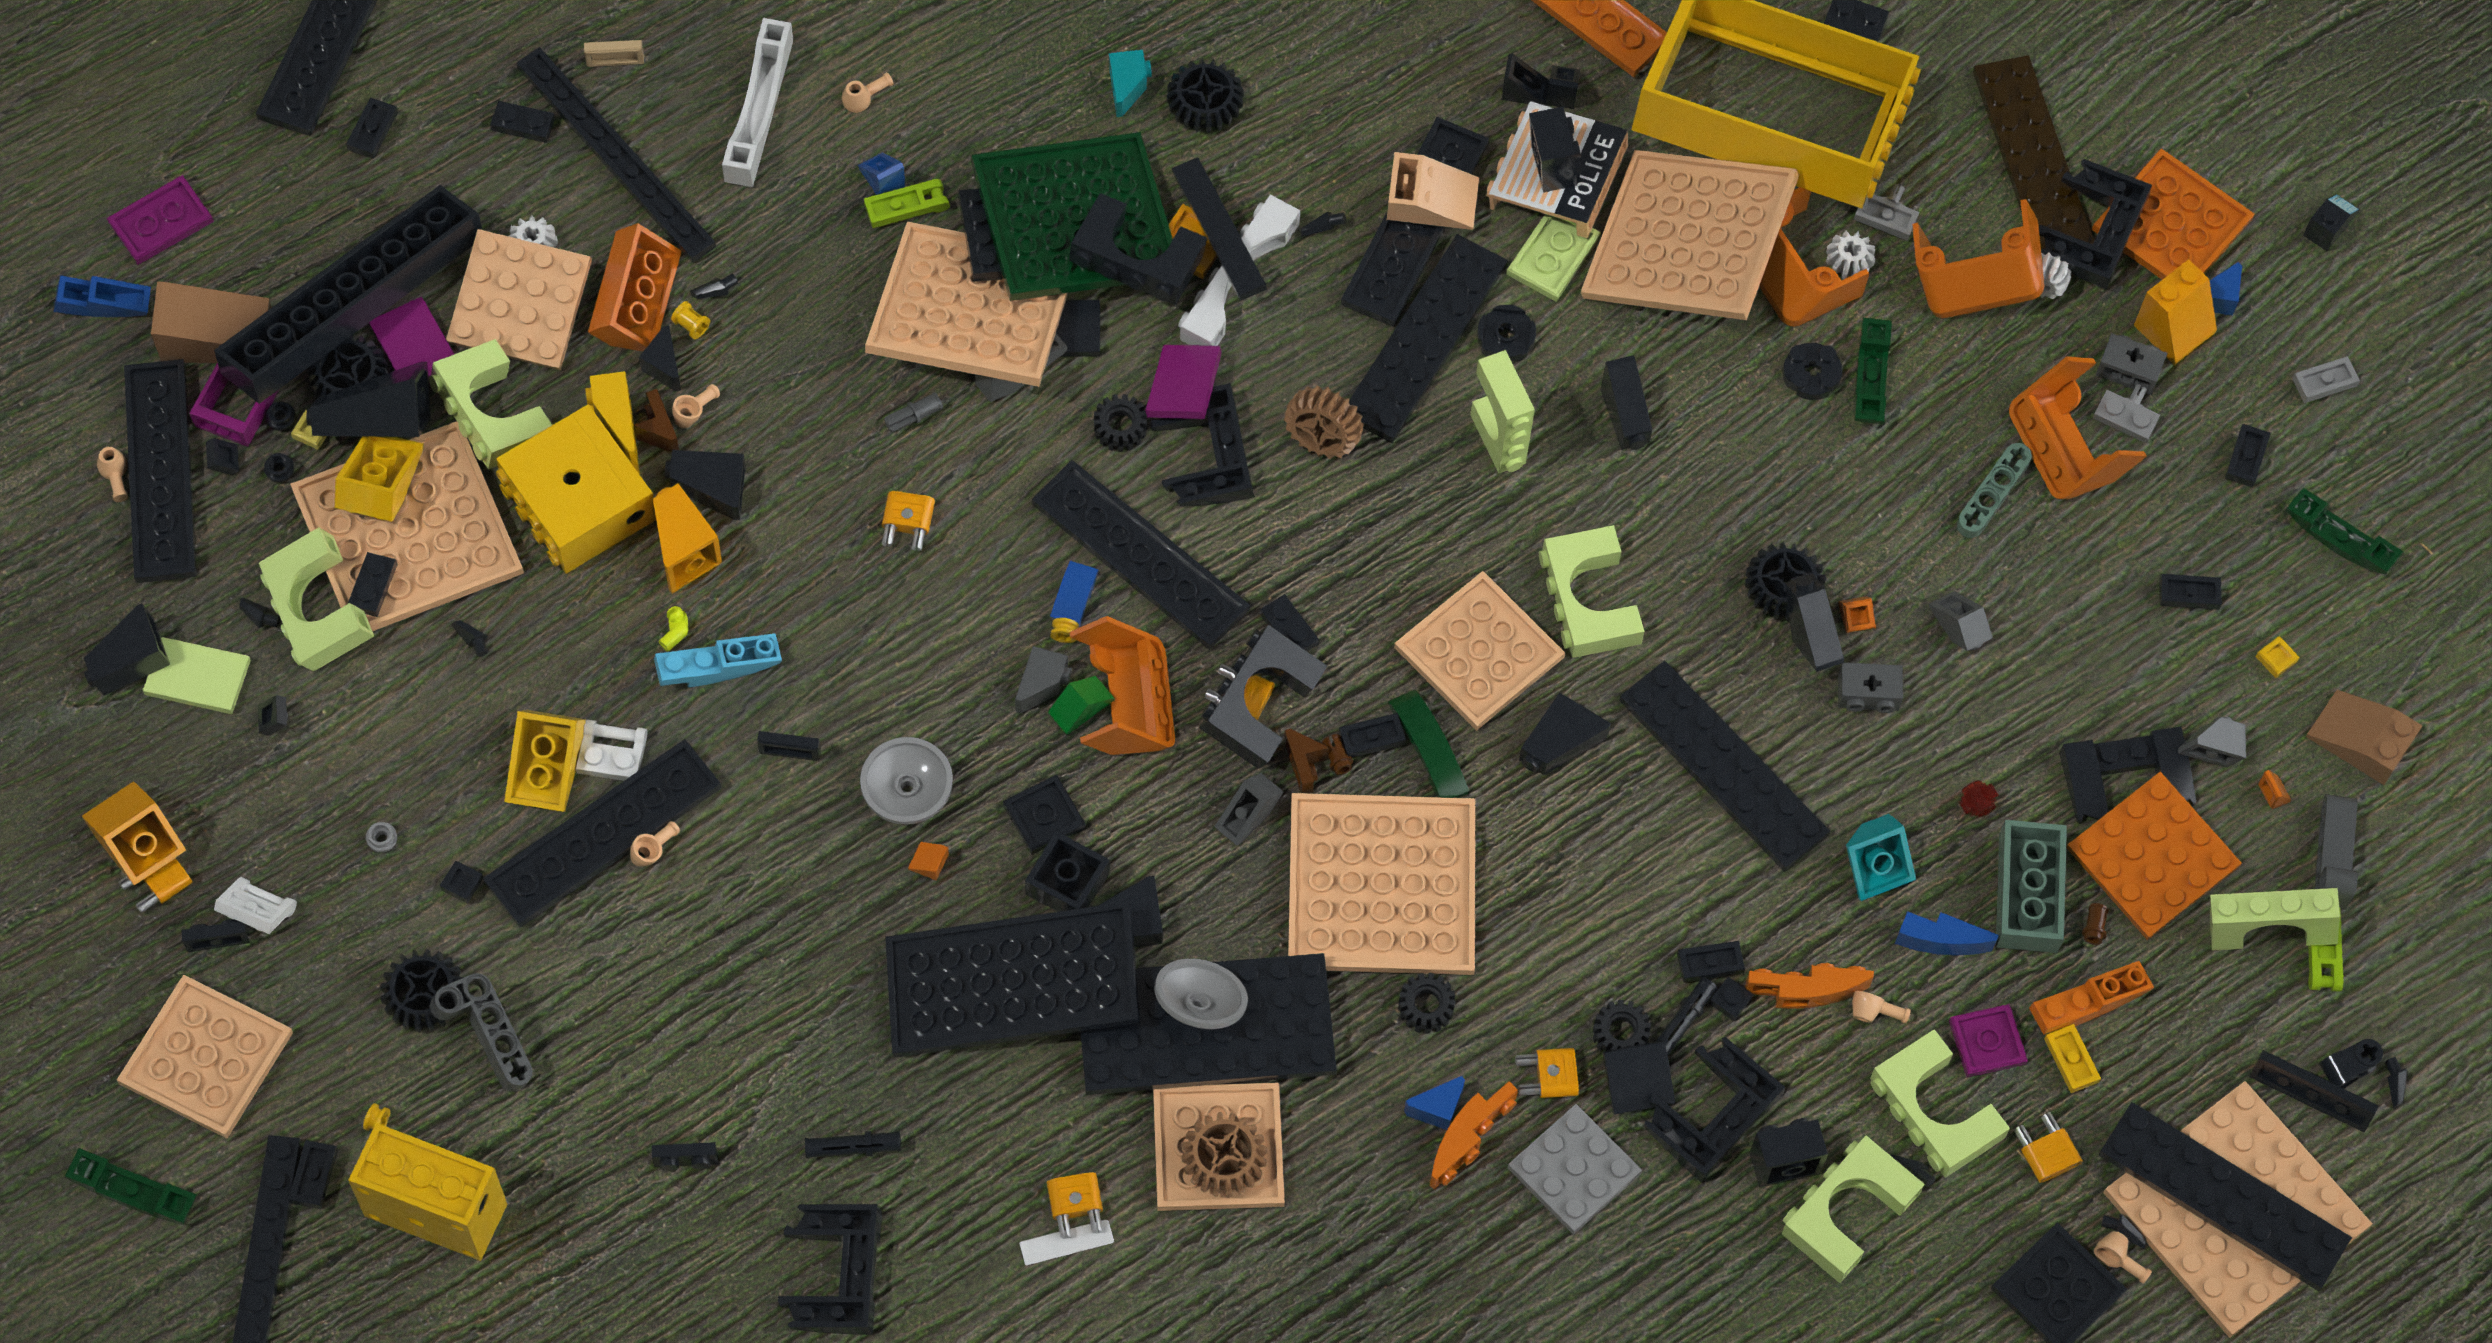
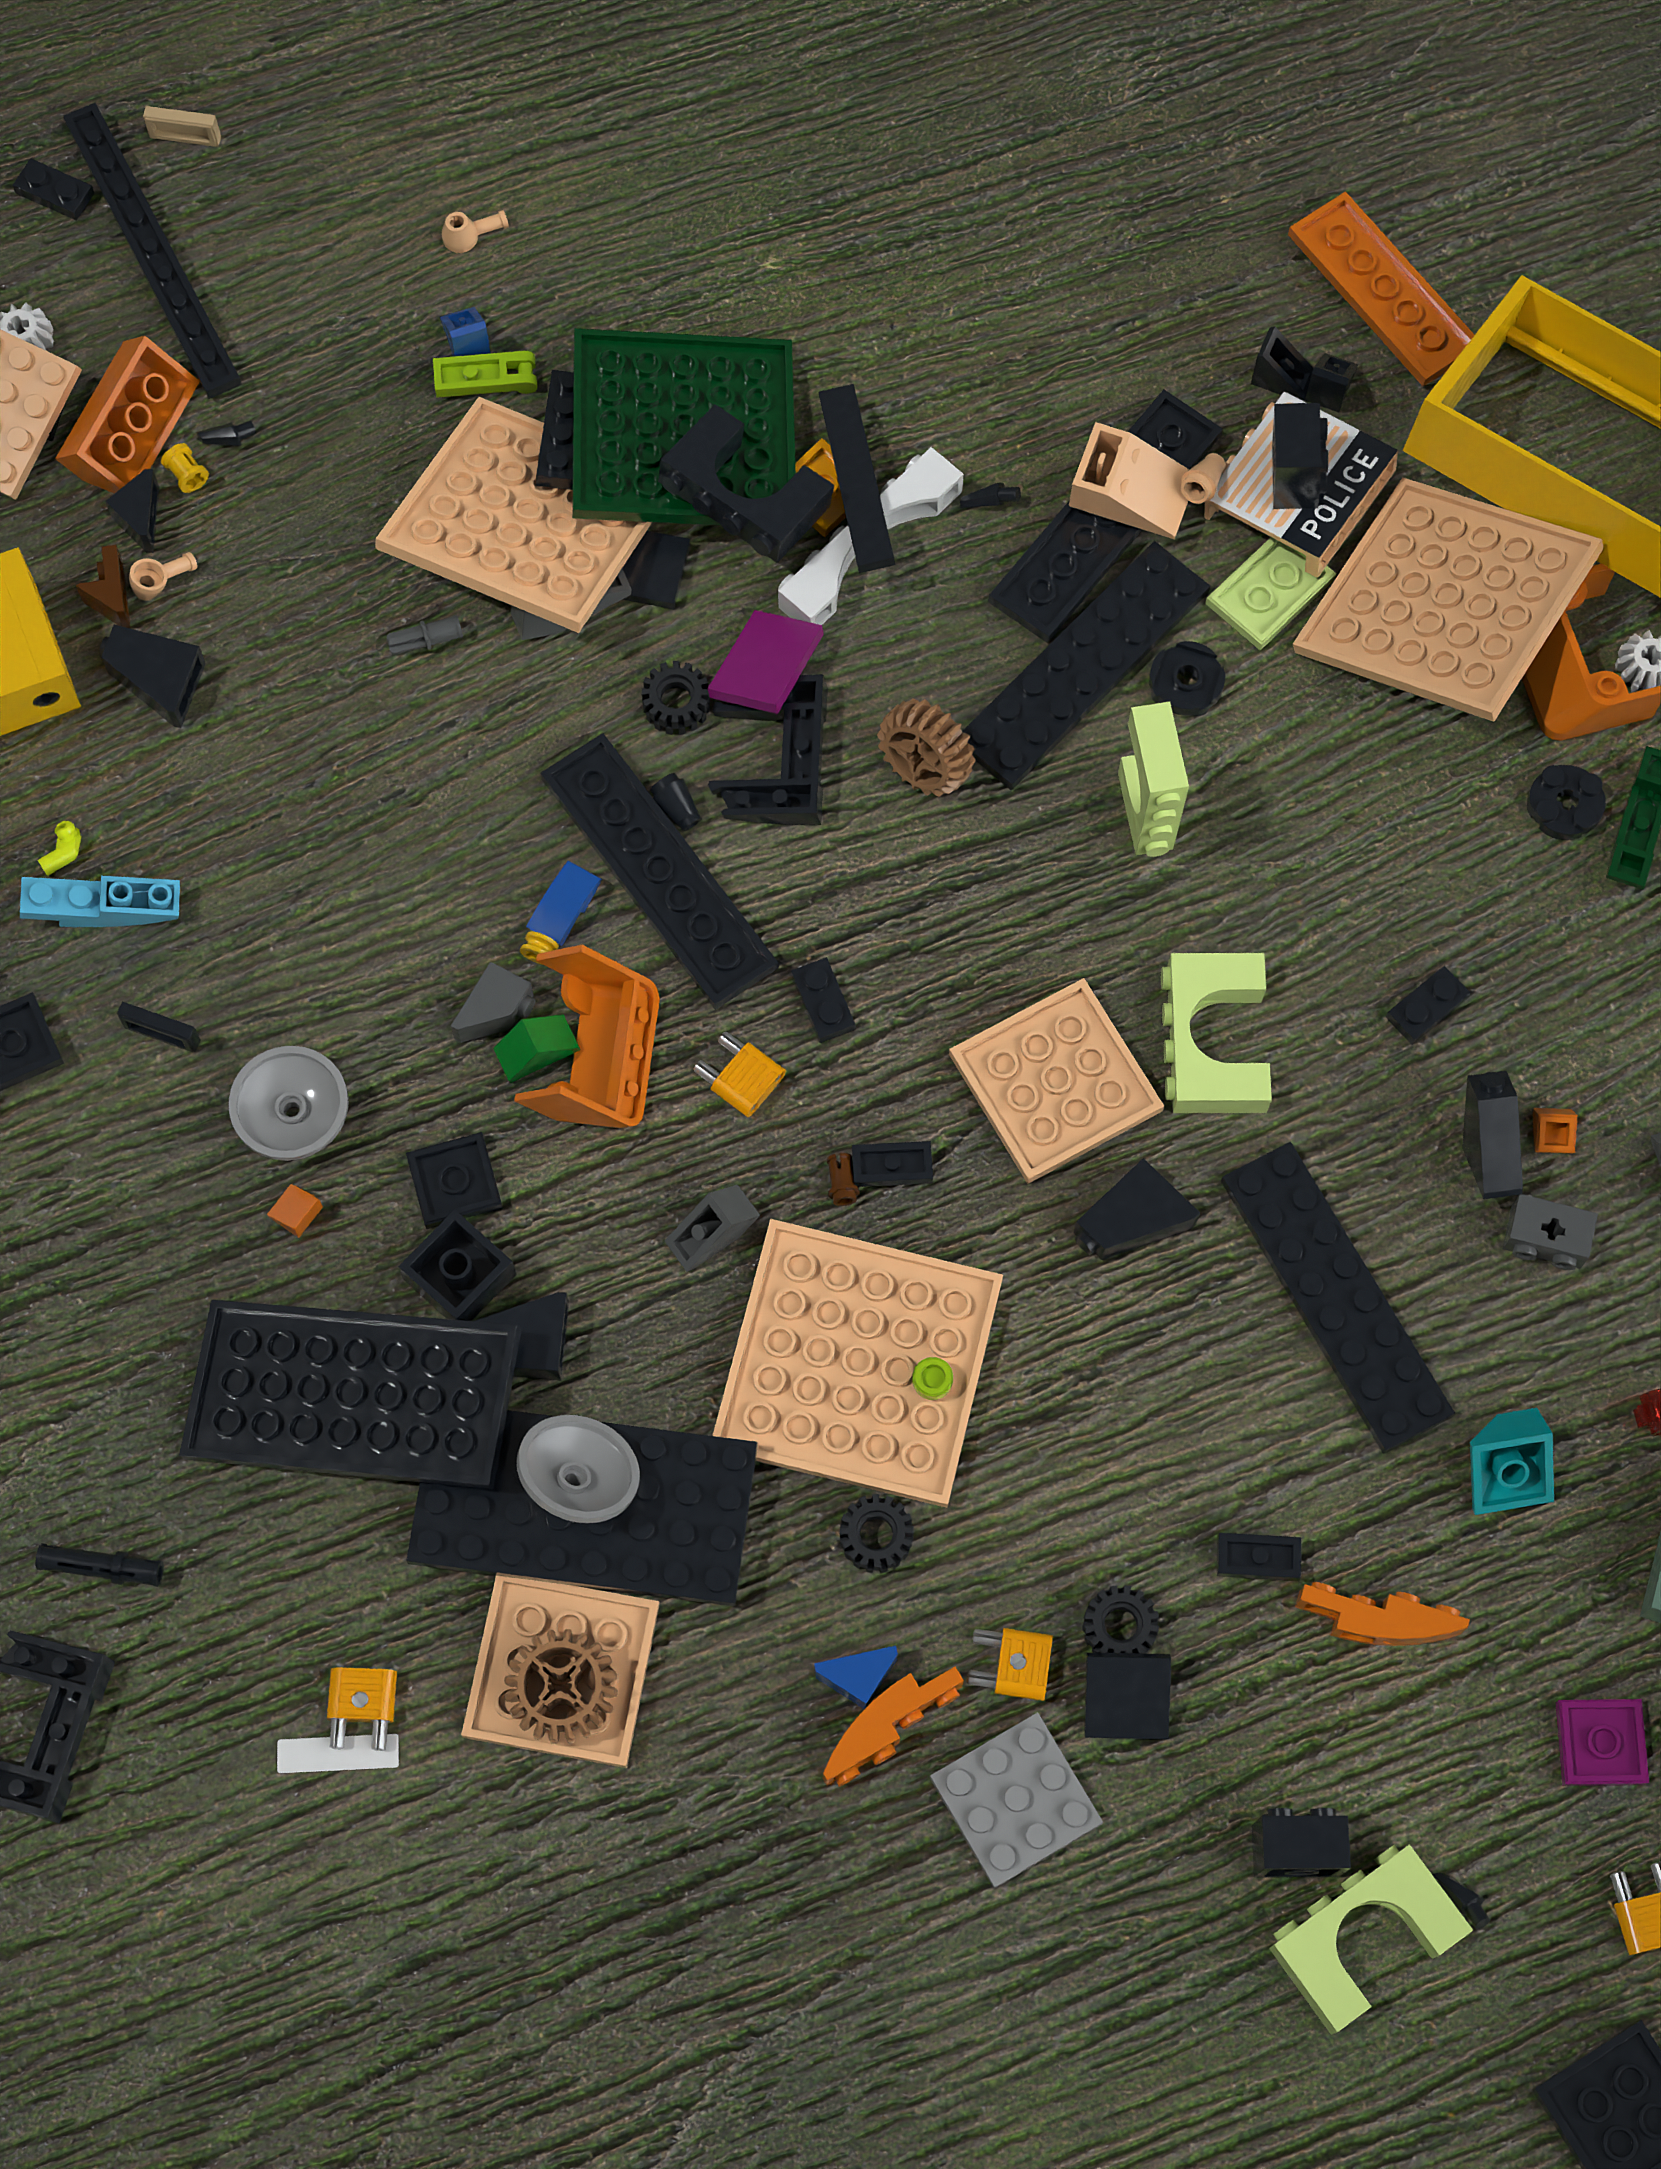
camera: 15 degrees right, 5 degrees up
(612, 404) = (59, 562): yellow slope -> none
(685, 538) = (92, 739): light orange slope -> none
(767, 73) = (311, 263): white arch -> none
(907, 514) = (384, 762): light orange piece -> none
(1128, 78) = (794, 271): teal slope -> none
(1141, 500) = (676, 801): none -> black cone
(1220, 87) = (903, 319): black gear -> none
(1230, 719) = (713, 1105): black arch -> none
(1302, 755) = (798, 1168): reddish brown slope -> none
(1430, 745) = (963, 1191): dark green slope -> none
(1441, 882) = (932, 1378): none -> lime tile
(1484, 181) = (1202, 480): none -> light nougat cone
(1626, 403) = (1317, 797): black slope -> none
(1703, 991) = (1240, 1594): black pin -> none
(1731, 999) = (1274, 1612): black plate -> none
(1743, 541) = (1428, 1005): none -> black plate
(1754, 1097) = (1276, 1753): black wedge -> none
(1763, 586) = (1438, 1068): black gear -> none
(1868, 1006) = (1452, 1664): light nougat bar -> none
(1945, 936) = (1574, 1588): blue slope -> none
(1946, 1145) = (1513, 1878): yellowish green arch -> none

